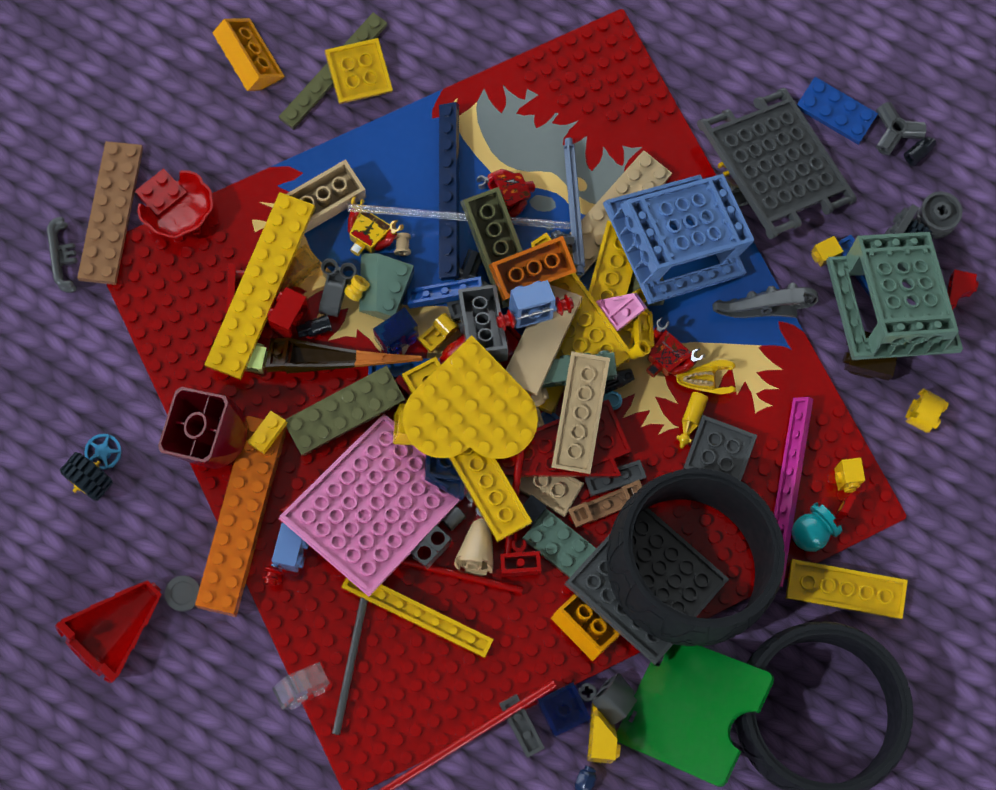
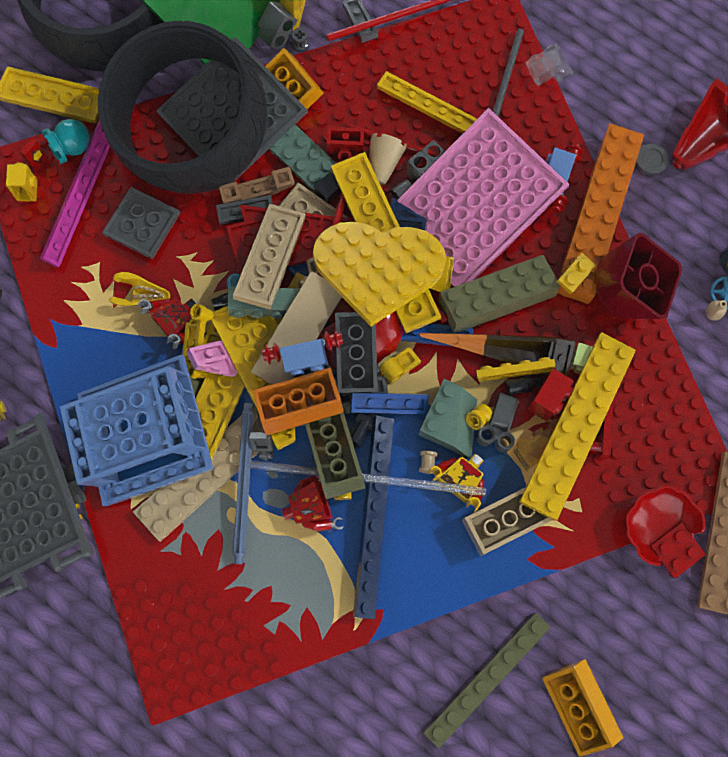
camera: 175 degrees left, 0 degrees up
(118, 425) = (716, 310): none -> tan plant
(315, 337) = (524, 368): none -> yellow plate
(358, 71) = (460, 670): yellow plate -> none
(396, 332) = (443, 363): clear blue brick -> none
(563, 710) = (319, 21): clear blue brick -> none
(692, 417) = (161, 258): yellow wheel -> none
(769, 303) = (59, 359): dark grey animal -> none

